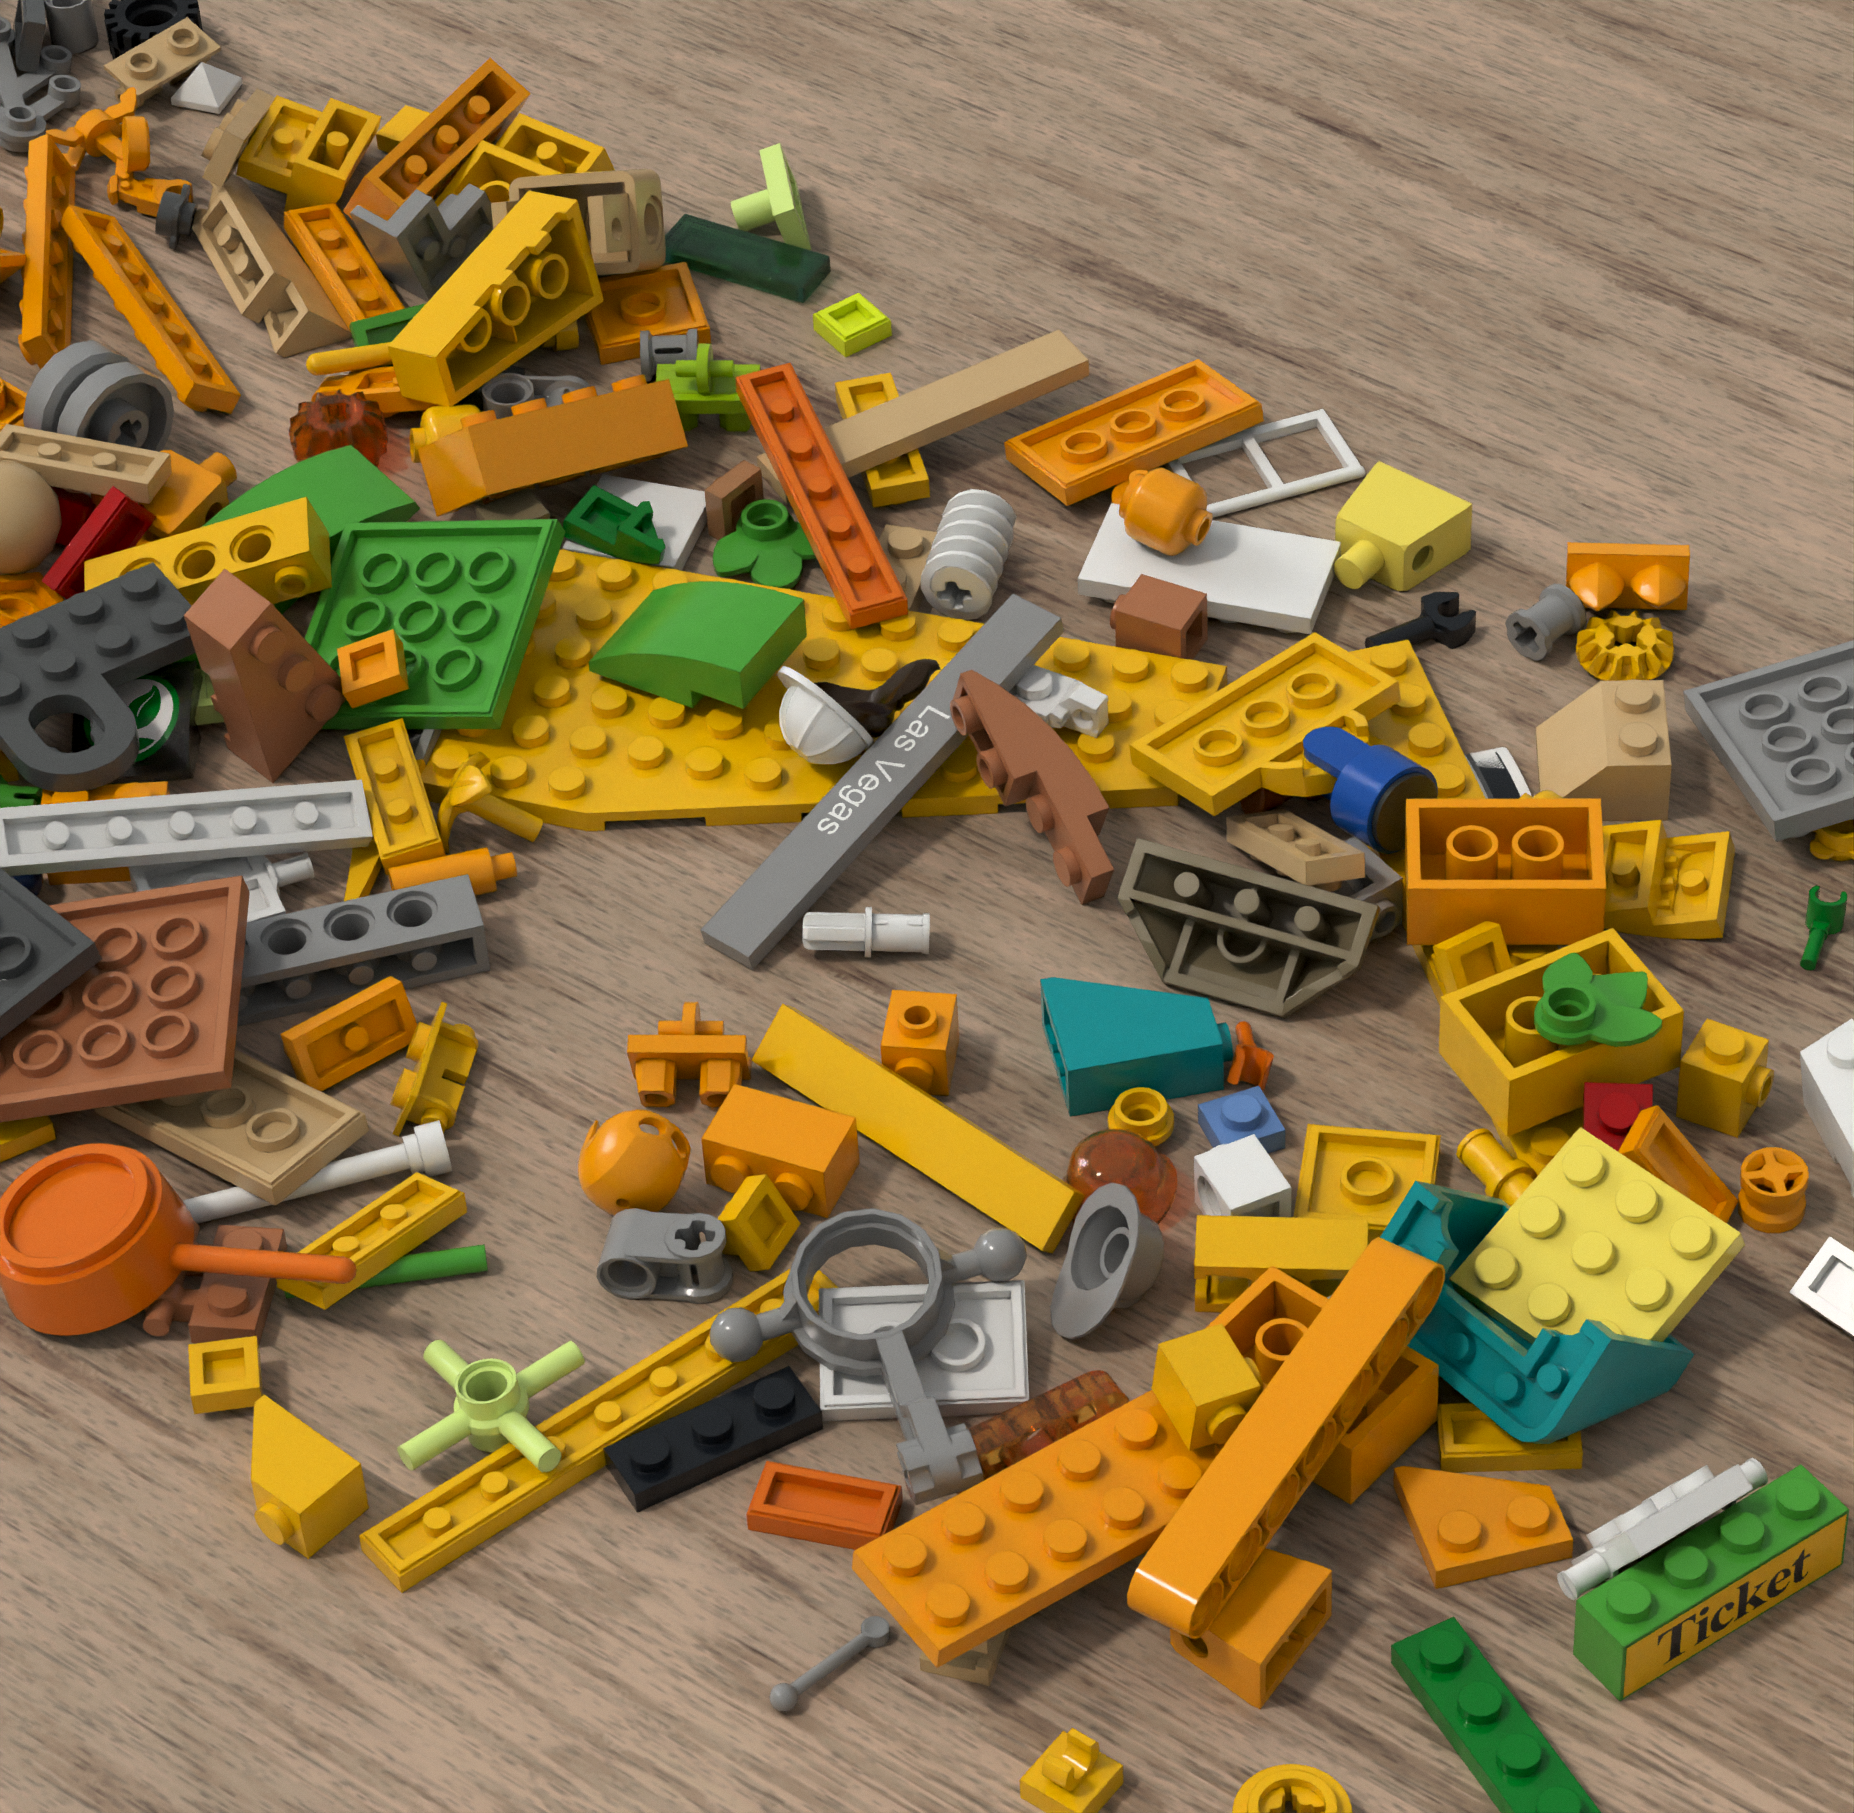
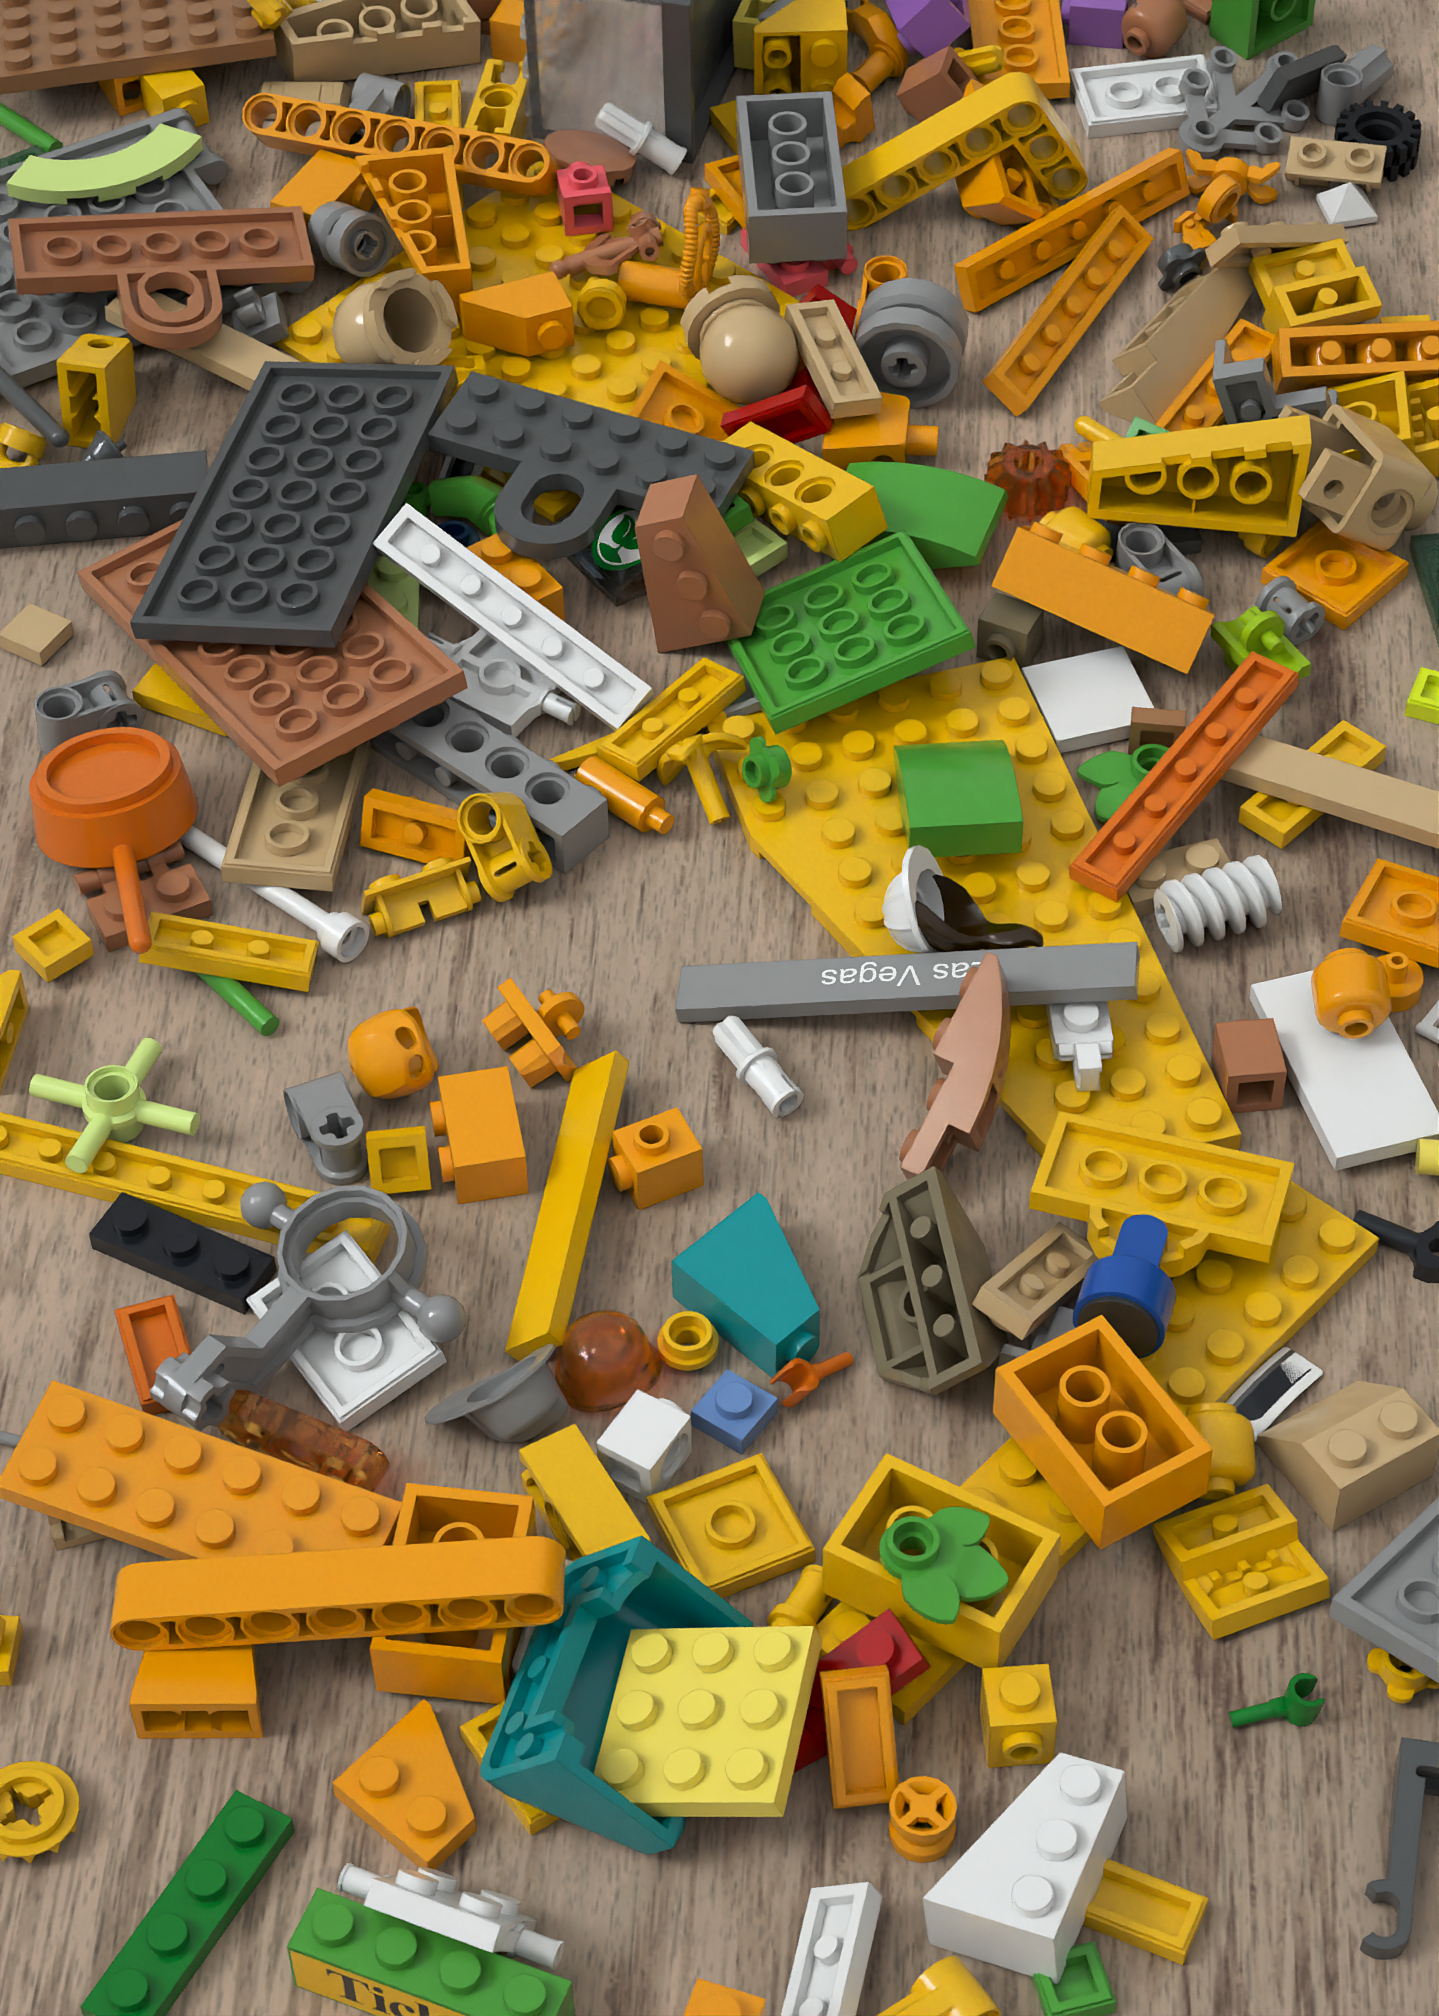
camera: 55 degrees right, 5 degrees up
(372, 668) = (762, 628): light orange plate -> none
(457, 975) = (507, 847): none -> yellow piece
(547, 735) = (766, 768): none -> bright green plate
(614, 527) = (1060, 680): green slope -> none
(1205, 1385) = (347, 1508): yellow brick -> none
(1471, 956) = (989, 1466): yellow tile -> none

